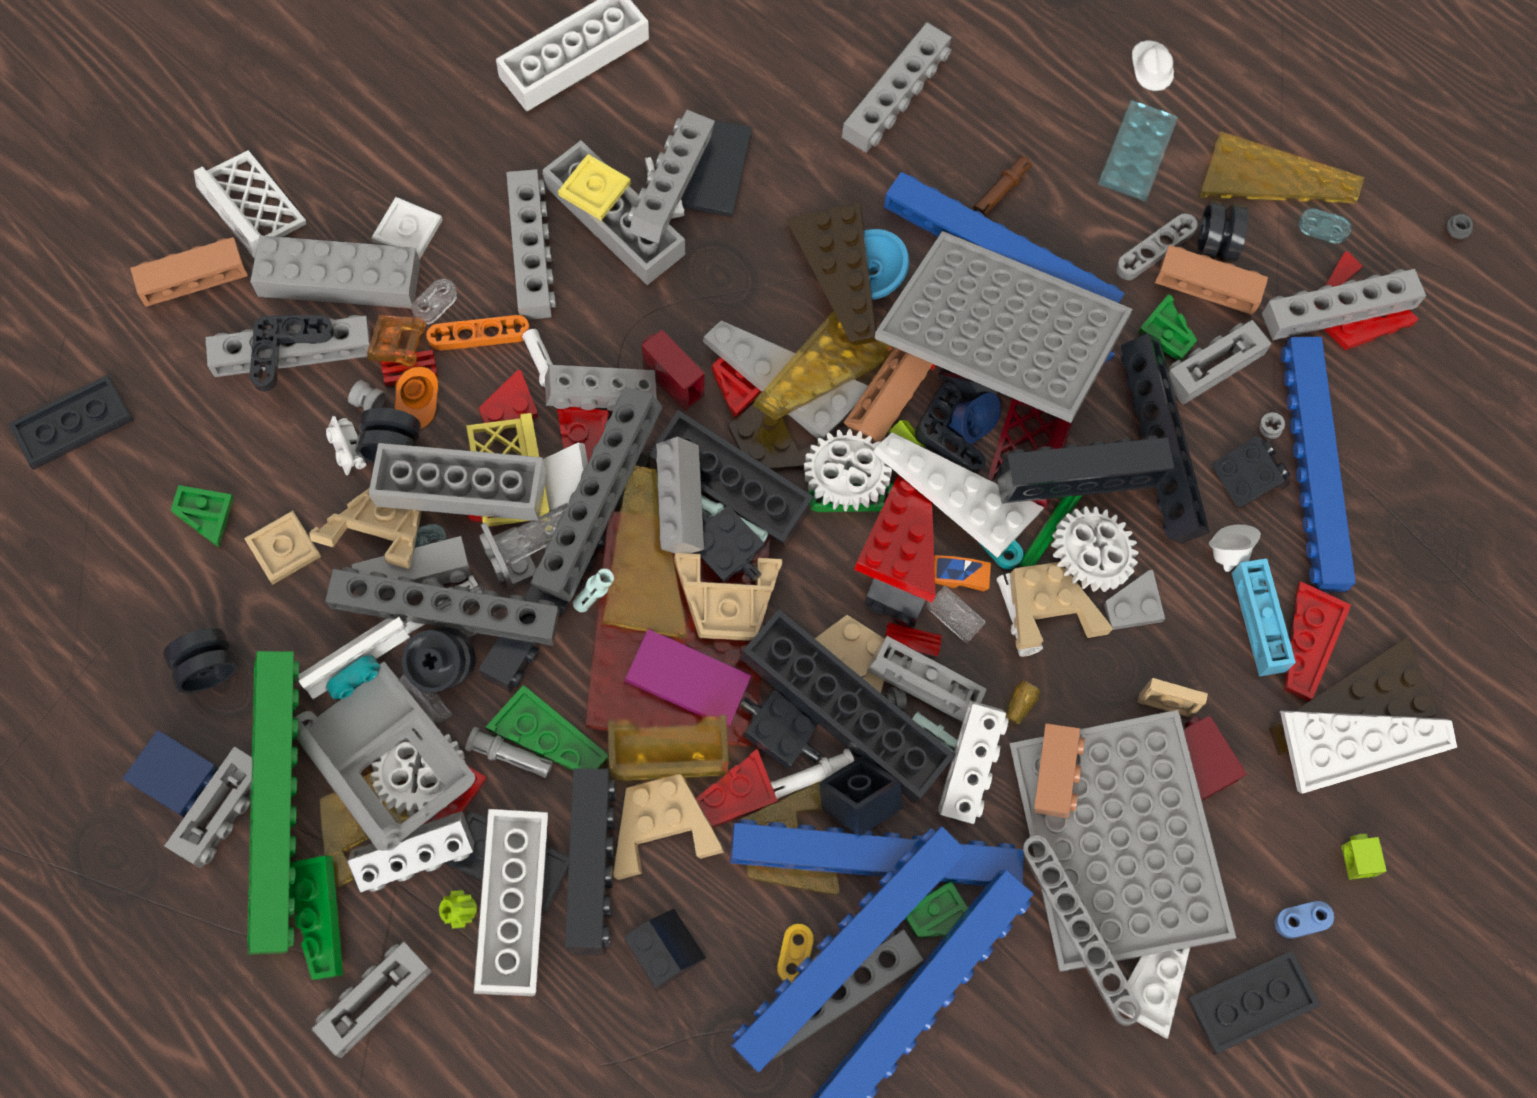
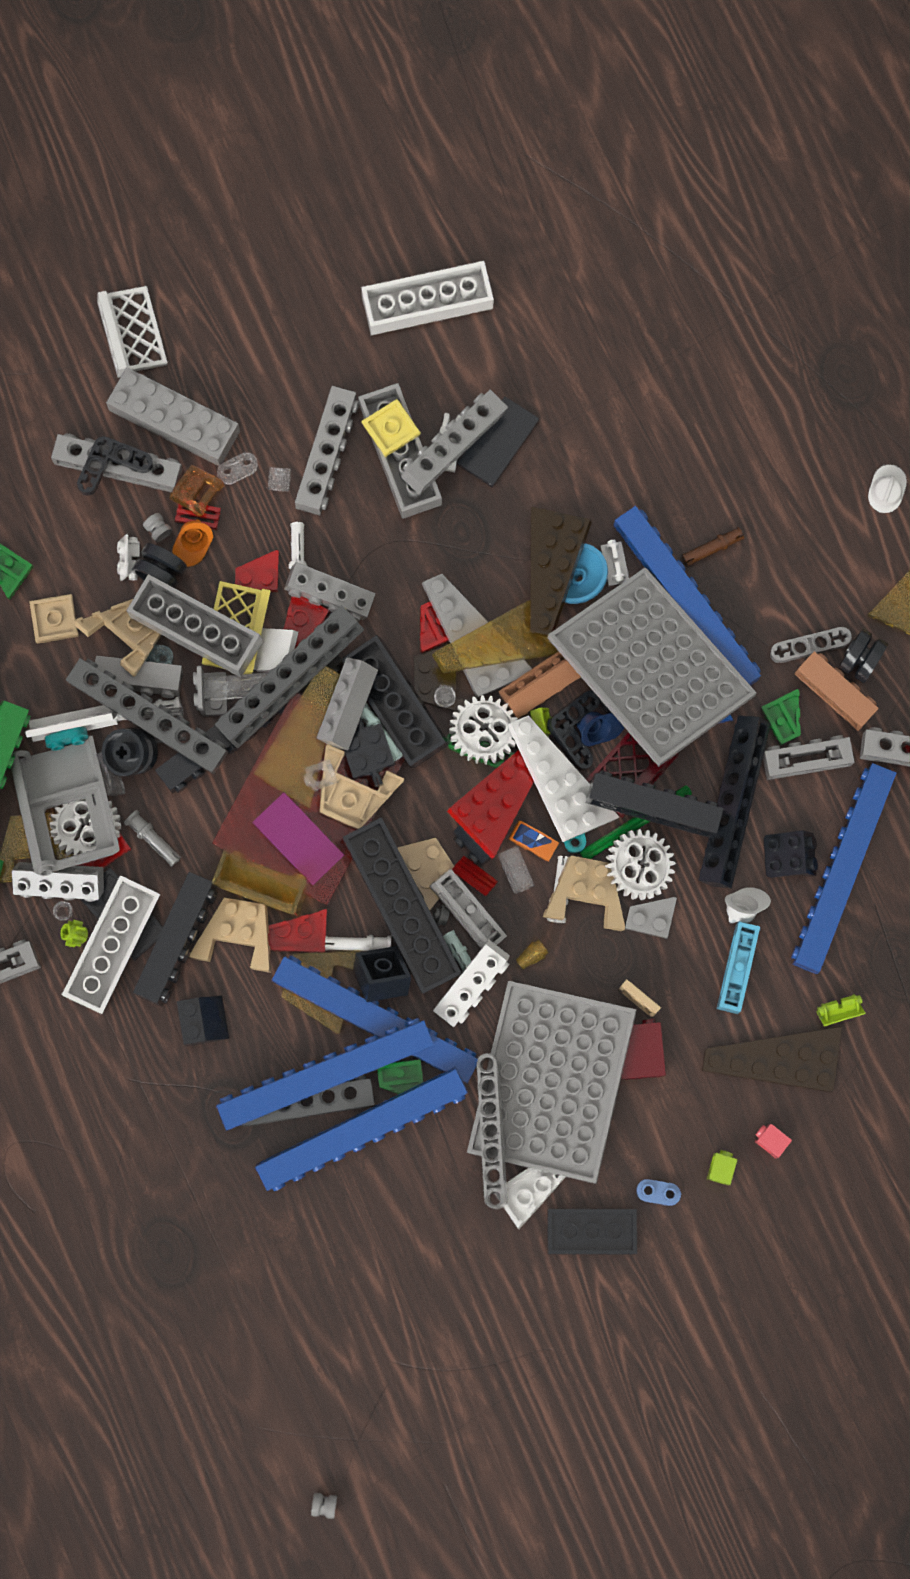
camera: 25 degrees right, 10 degrees up
(188, 271) = (65, 373): nougat brick -> none
(407, 226) = (240, 399): white tile -> none
(435, 897) = (64, 904): none -> clear bush
(478, 328) = (261, 503): orange beam -> none
(488, 294) = (279, 479): none -> clear tile
(542, 730) = (182, 831): green wing -> none
(592, 583) = (258, 747): light aqua pin -> none
(673, 369) = (389, 598): dark red brick -> none
(687, 577) = (330, 775): none -> clear brick
(780, 729) = (349, 901): black plate -> none
(789, 446) = (446, 699): none -> clear wheel
(794, 953) = (289, 1061): yellow plate -> none
(915, 249) = (616, 562): none -> white hinge
(922, 57) = (711, 398): light grey brick -> none
(1058, 771) = (529, 1016): nougat brick -> none
(1138, 150) = (835, 559): clear light blue plate -> none
(1268, 432) = (820, 828): light grey bush -> none
(1312, 638) = (772, 995): red wing -> none
(1347, 746) = (750, 1086): white wing -> none
(1395, 622) = (832, 1012): none -> lime hinge
(1402, 799) = (772, 1140): none -> coral brick

